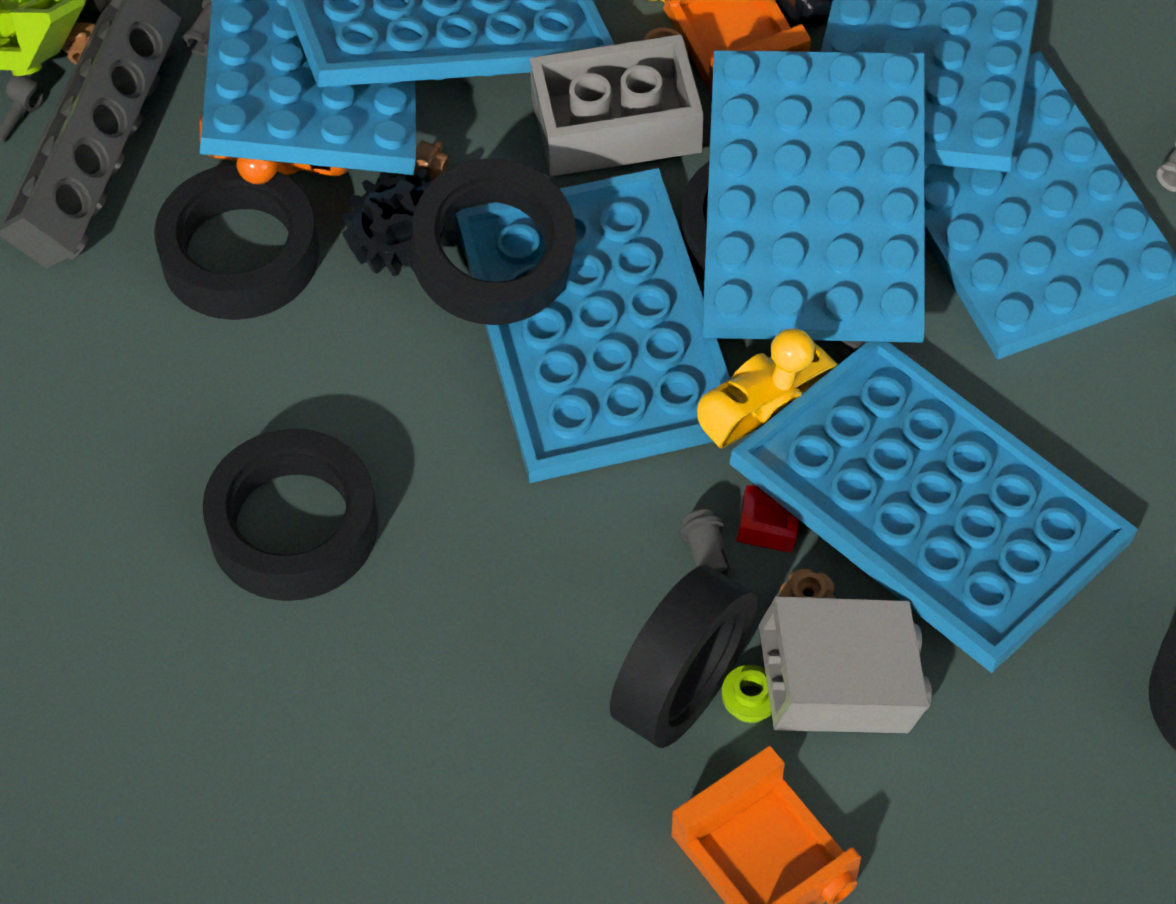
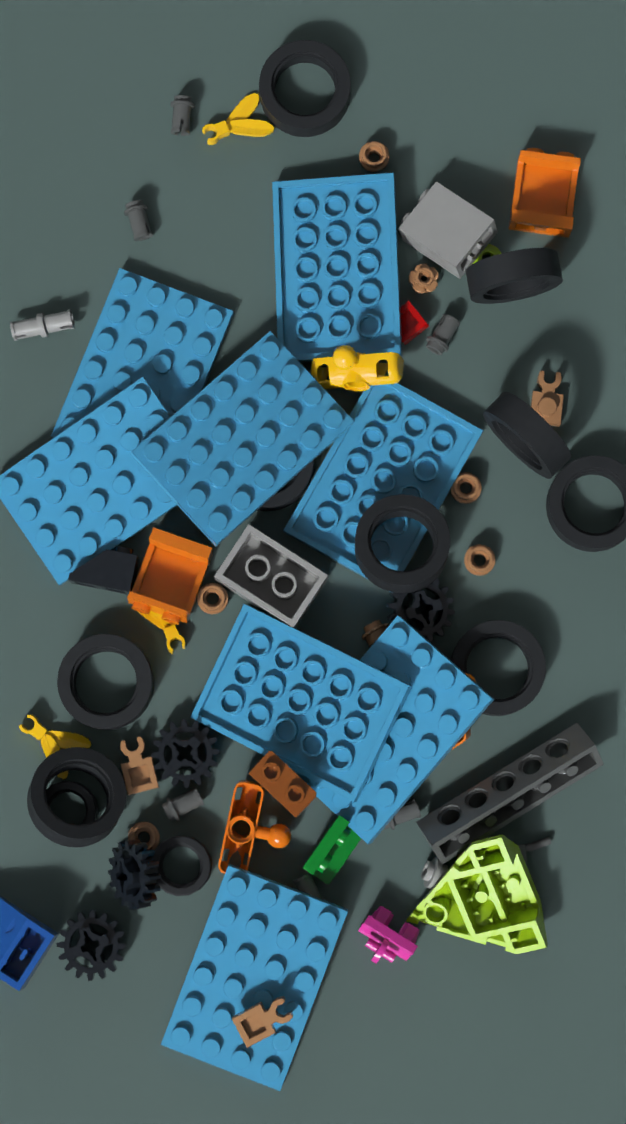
camera: 135 degrees left, 25 degrees up
(380, 326) = (481, 550): none -> medium nougat plate
(460, 442) = (527, 435): none -> black tyre
(481, 586) = (547, 402): none -> medium nougat plate
(482, 388) = (470, 479): none -> medium nougat plate
(1055, 676) = (377, 148): none -> medium nougat plate

